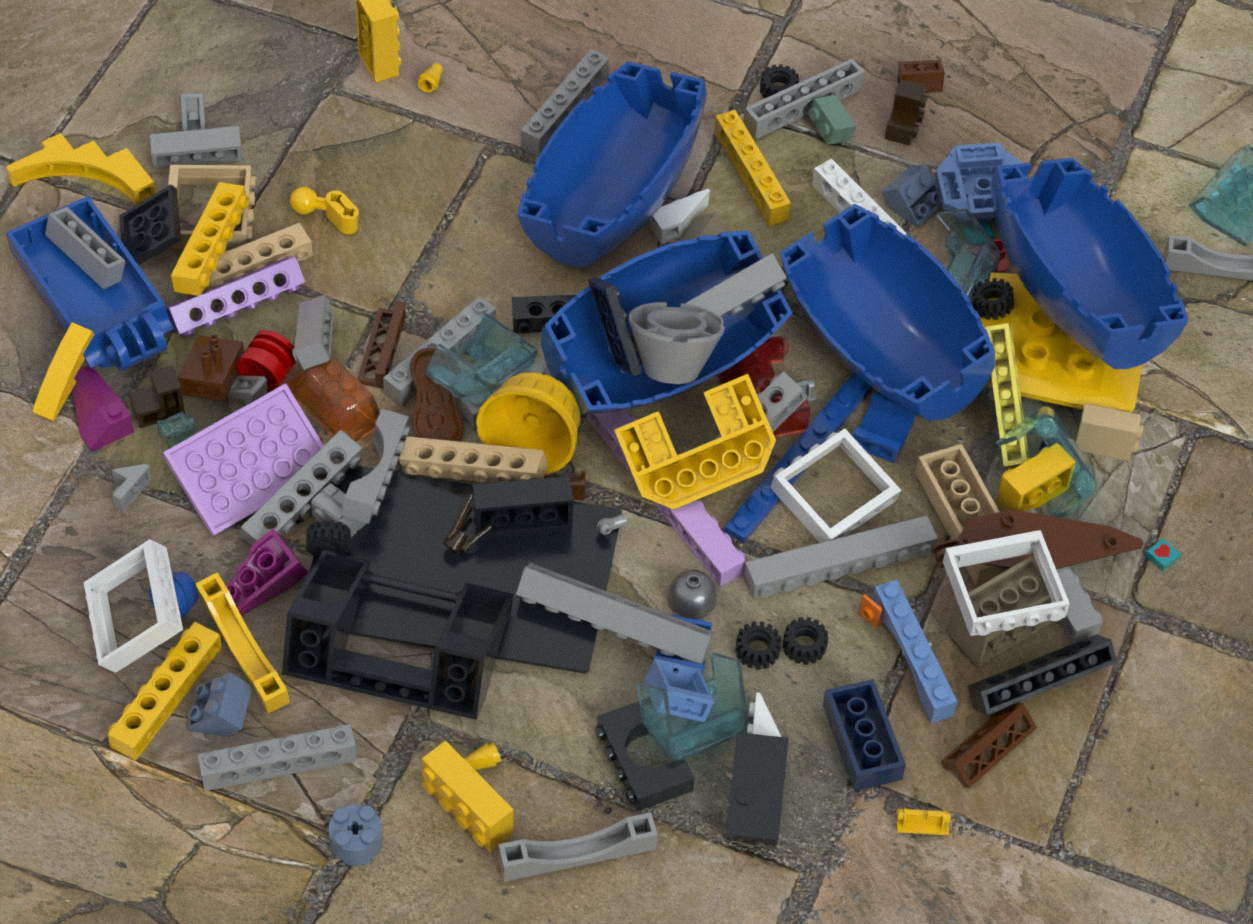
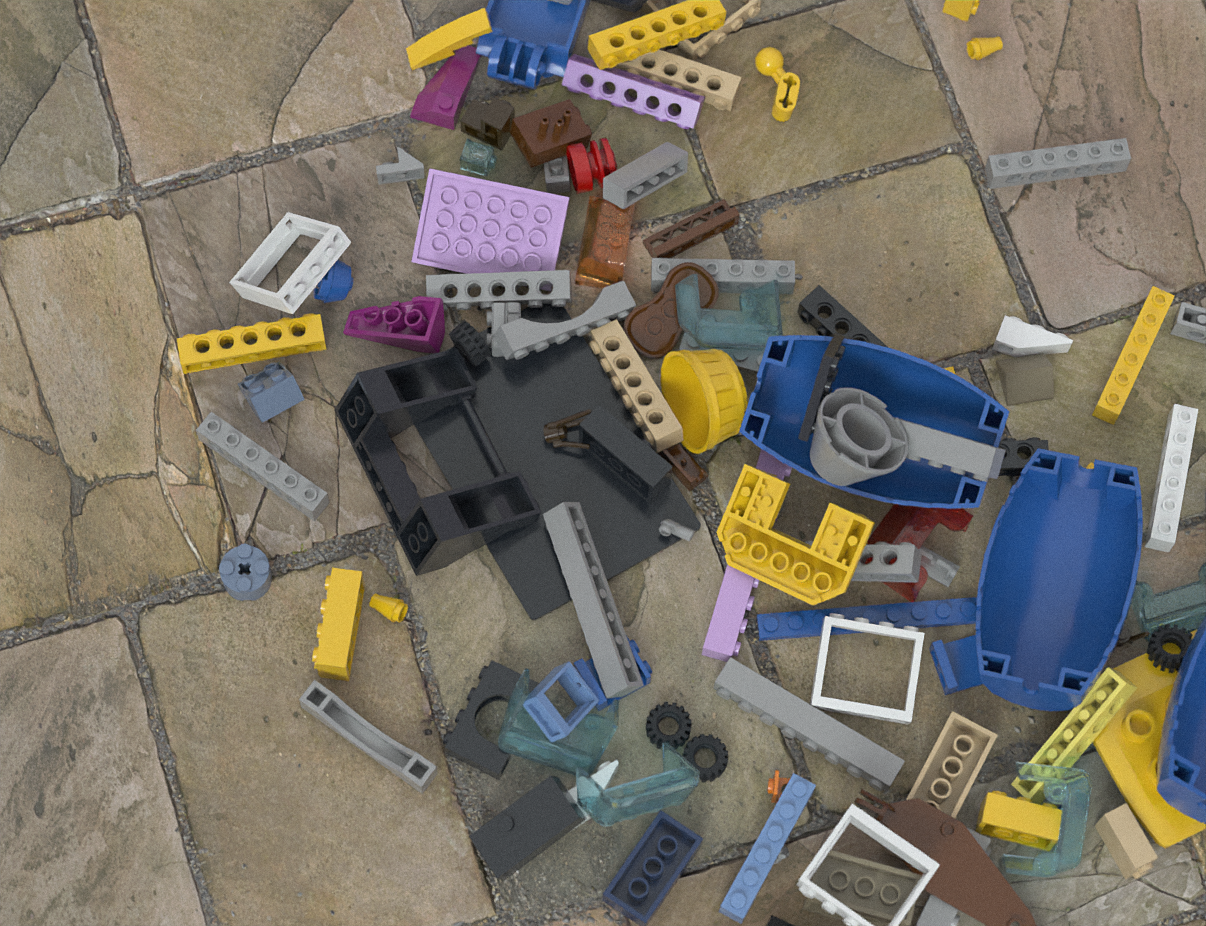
camera: 50 degrees right, 15 degrees up
(241, 643) = (320, 393): yellow arch -> none
(611, 164) = (1010, 250): blue windscreen -> none
(692, 594) = (667, 649): flat silver cylinder -> none
(810, 668) = (639, 796): none -> clear light blue windscreen

